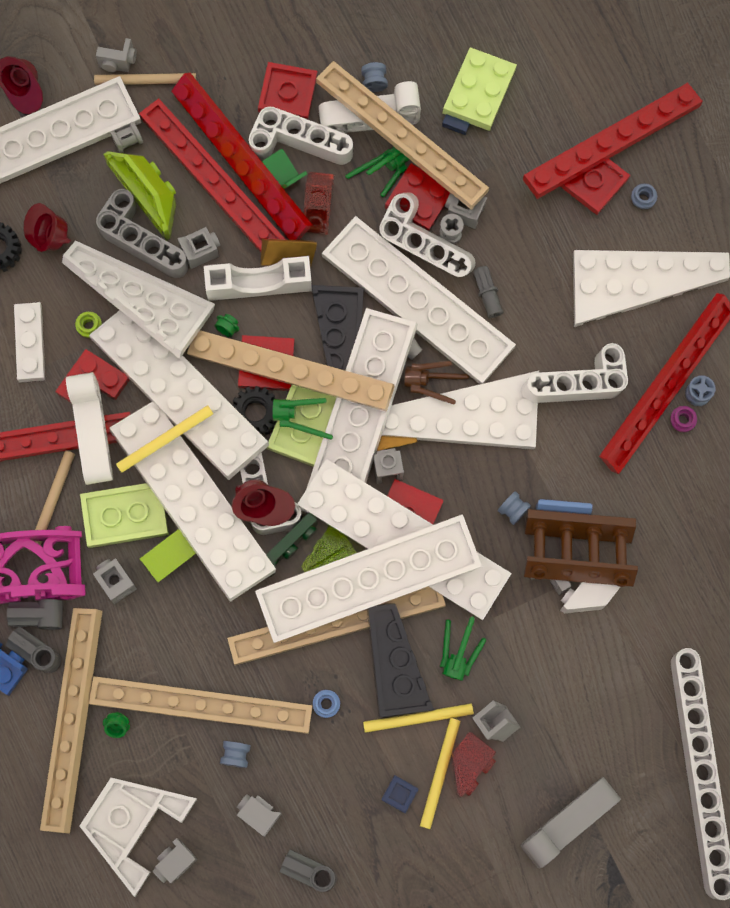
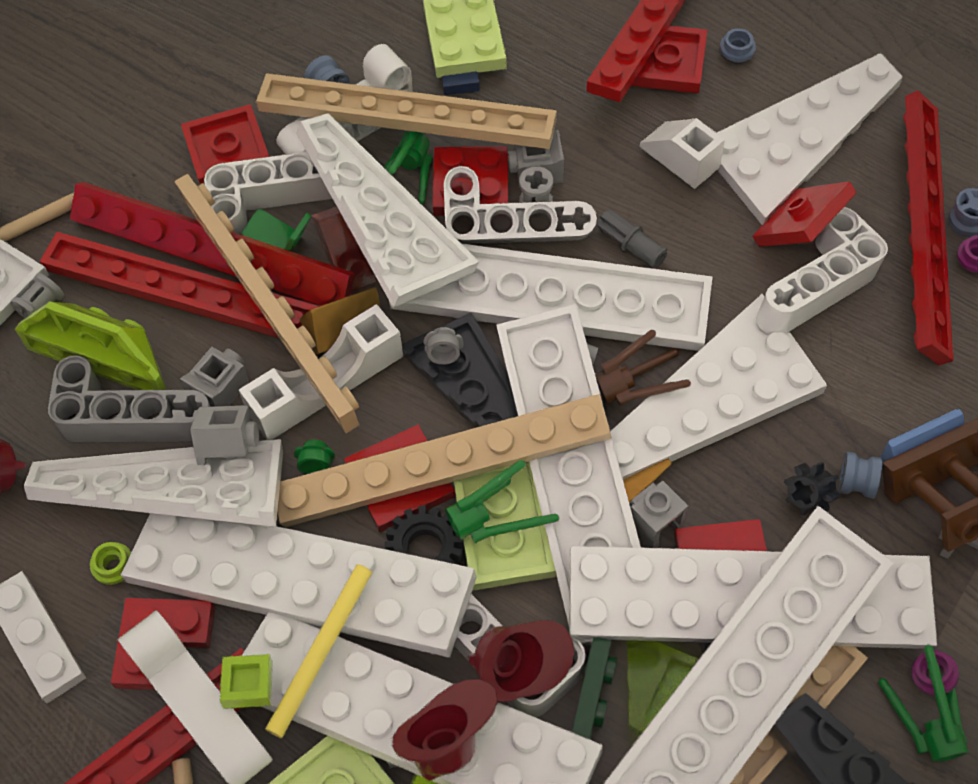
camera: 25 degrees left, 15 degrees down
(119, 434) = (246, 681): none -> lime plate
(183, 285) = (223, 432): none -> light grey brick
(198, 517) = (444, 731): none -> dark red piece
(250, 227) = (276, 311): none -> tan plate
(333, 300) = (443, 345): none -> light grey plate
(346, 214) = (394, 231): none -> white wing
(481, 500) = (823, 485): none -> black gear
(482, 627) = (946, 665): none -> magenta plate
(557, 252) = (686, 149): none -> white slope
(594, 337) = (804, 214): none -> red plate

